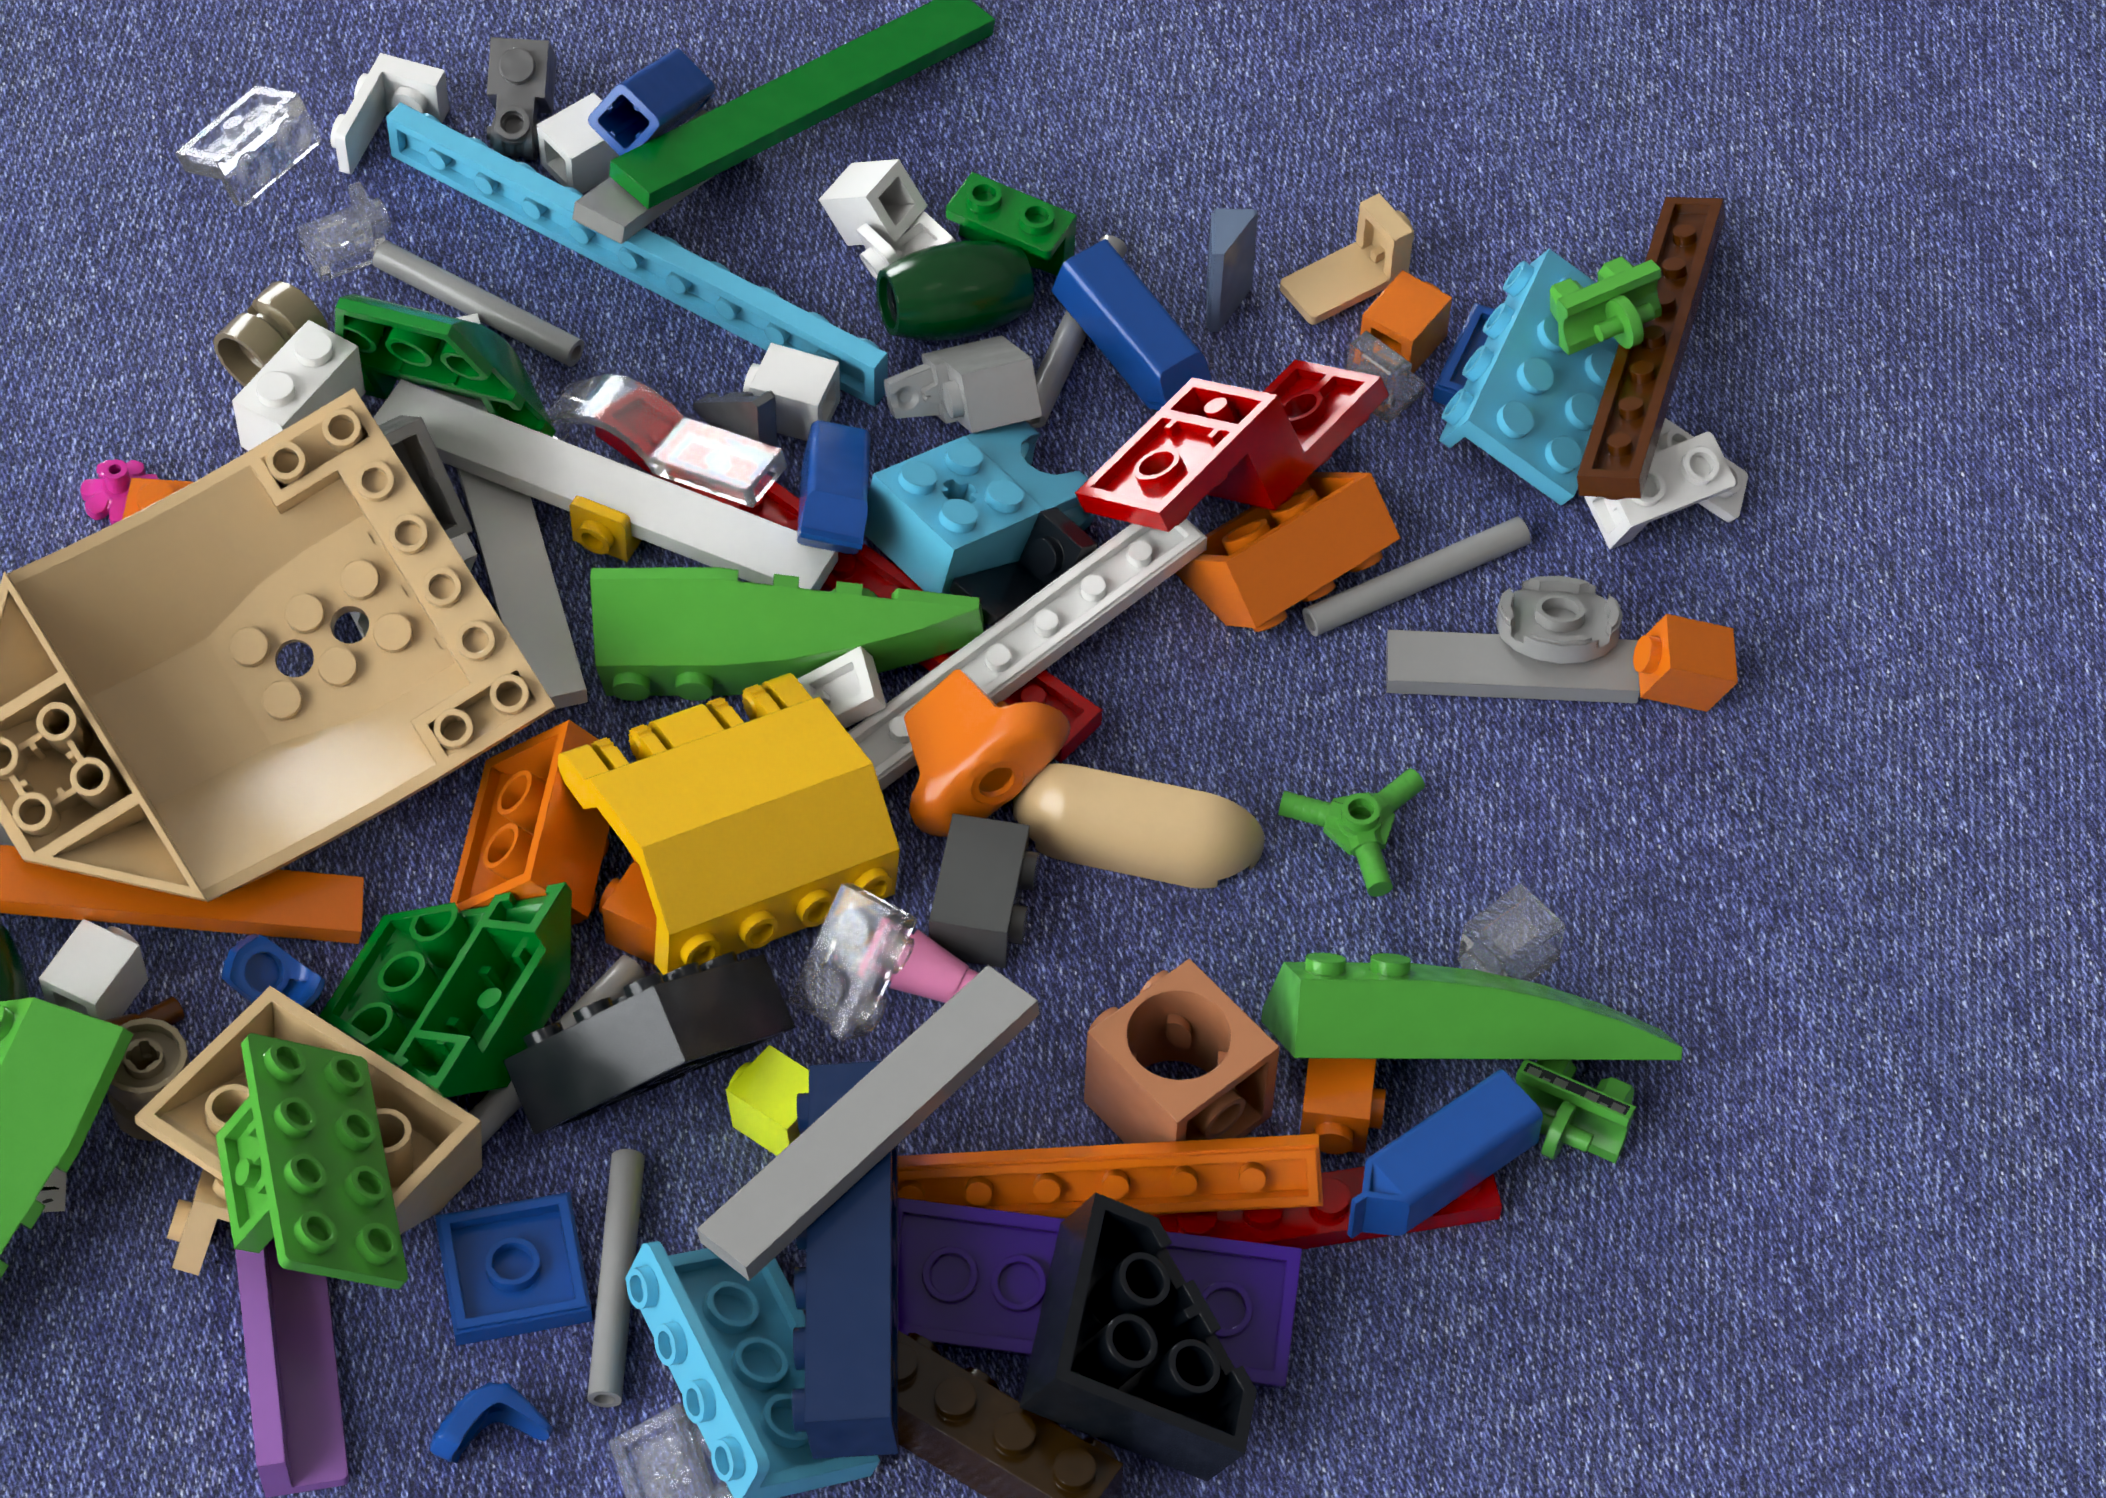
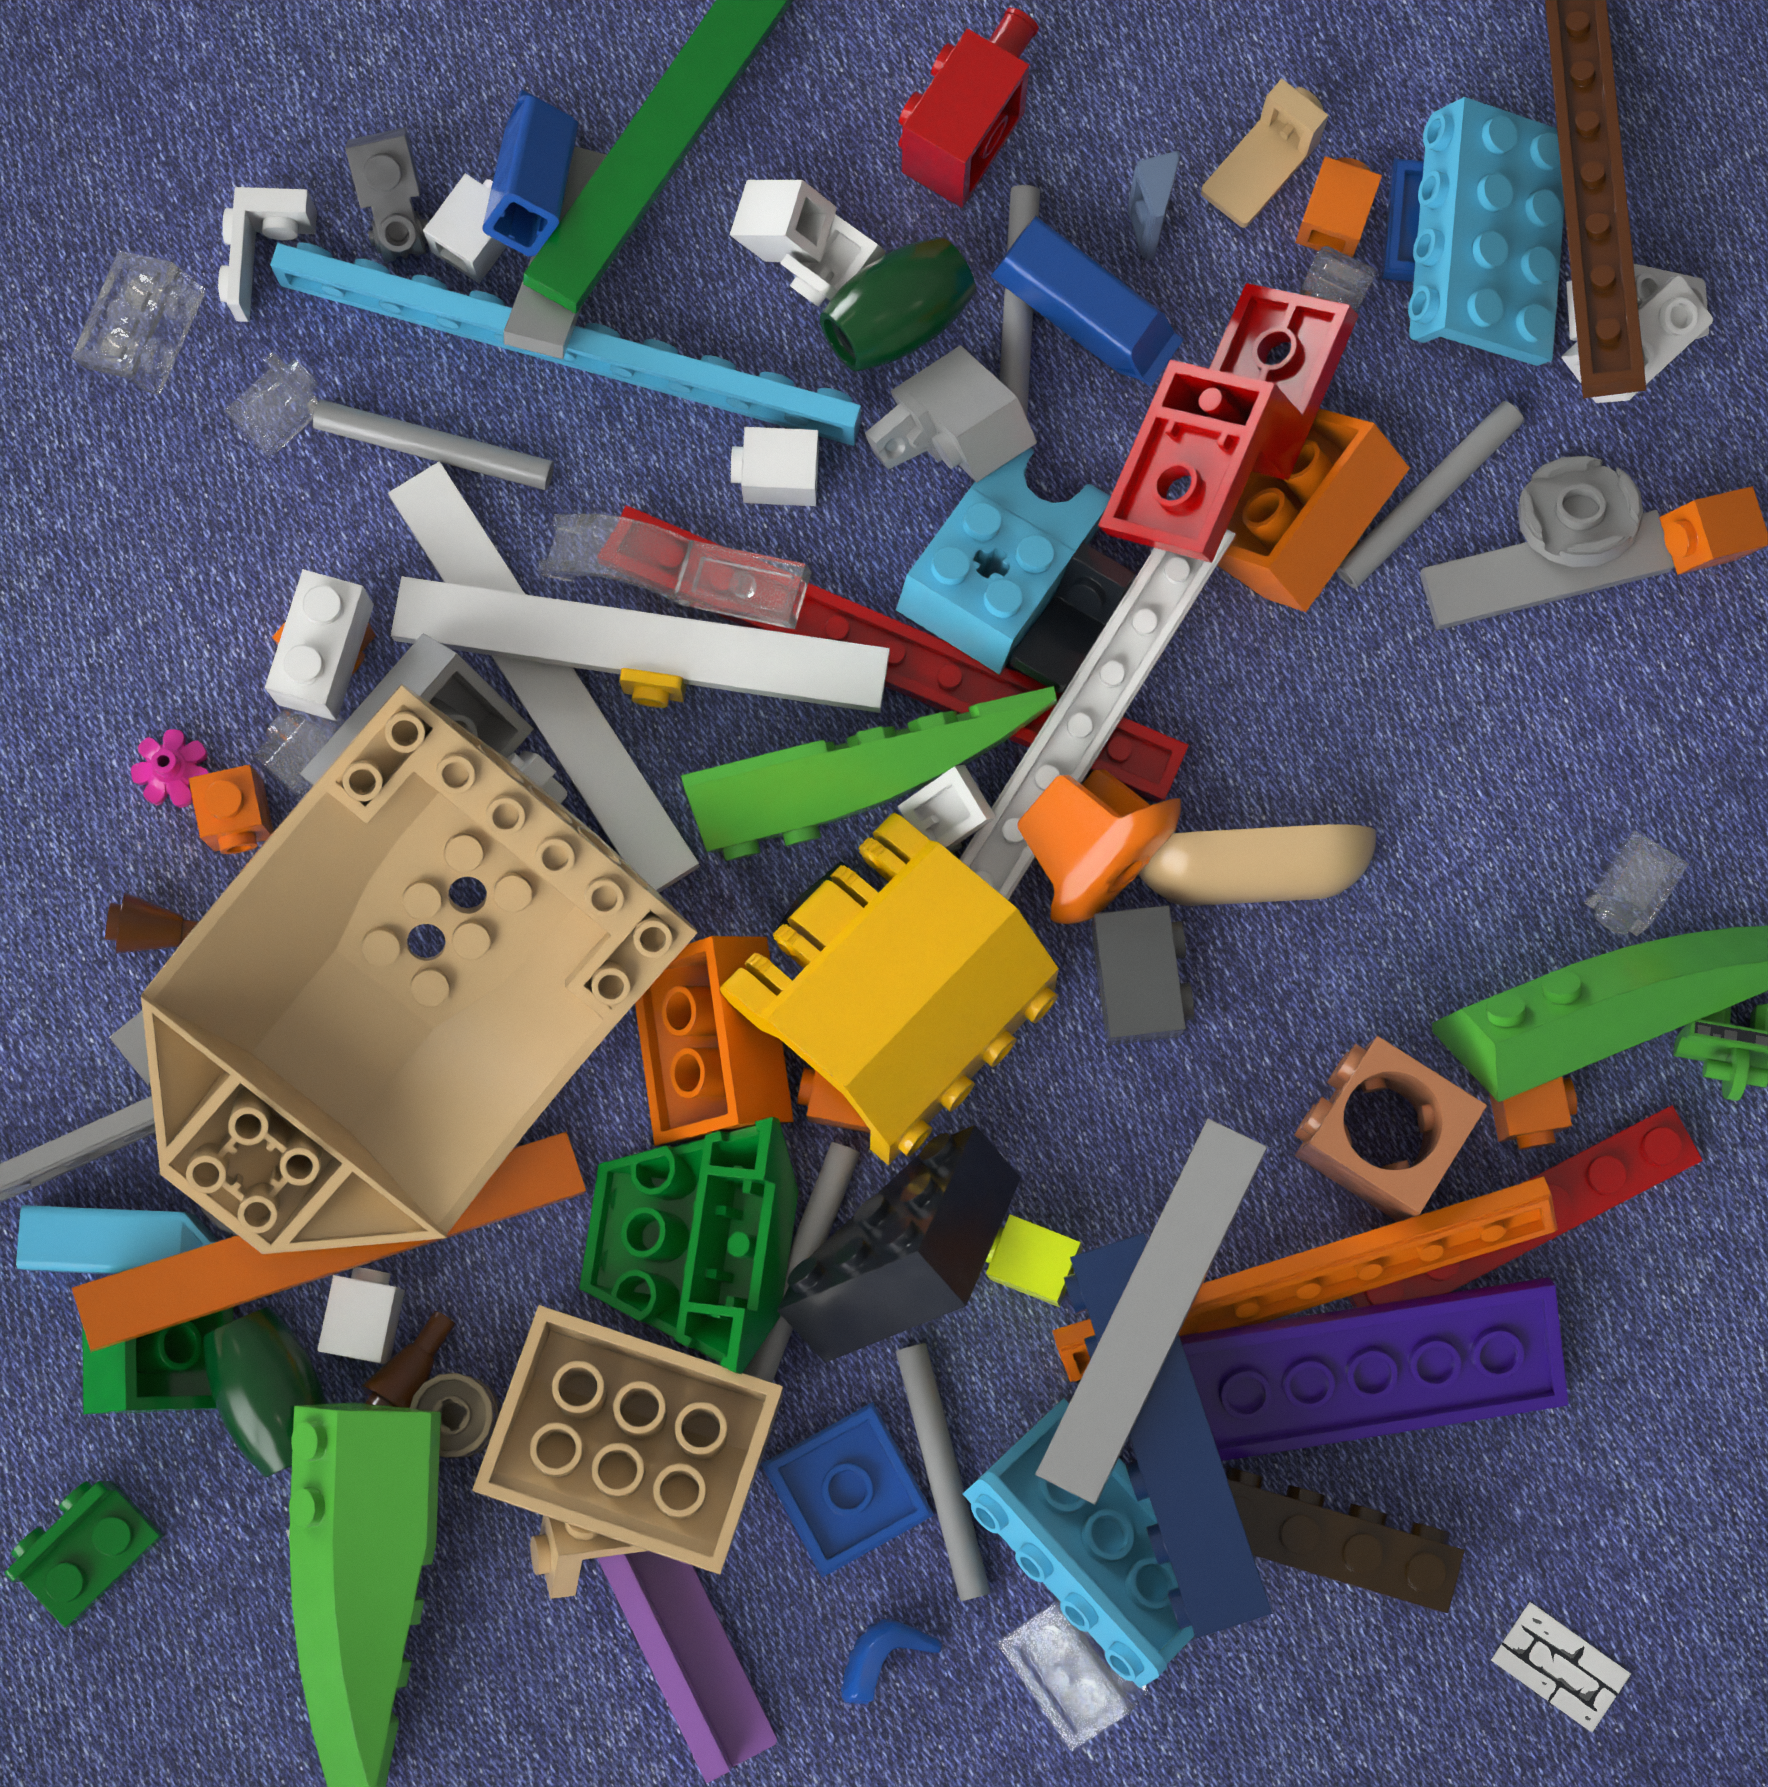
camera: 15 degrees left, 25 degrees up
(261, 963) = (527, 1267): blue hair -> none
(268, 325) = (253, 557): dark tan wheel -> none
(311, 1165) = (660, 1506): bright green bracket -> none
(440, 355) = (446, 553): green wedge -> none
(741, 414) = (737, 516): dark grey tile -> none
(834, 488) = (866, 587): blue piece -> none
(853, 962) = (1053, 1098): clear bracket -> none
(931, 971) = (1115, 1072): bright pink cone -> none
(1011, 217) = (928, 207): green bracket -> none
(1081, 148) = (967, 109): none -> red brick
(1135, 1347) = (1440, 1438): black brick -> none
(1359, 823) = (1459, 792): bright green piece -> none
(1445, 1156) = (1652, 1145): blue piece -> none
(1609, 308) = (1554, 168): bright green hips -> none

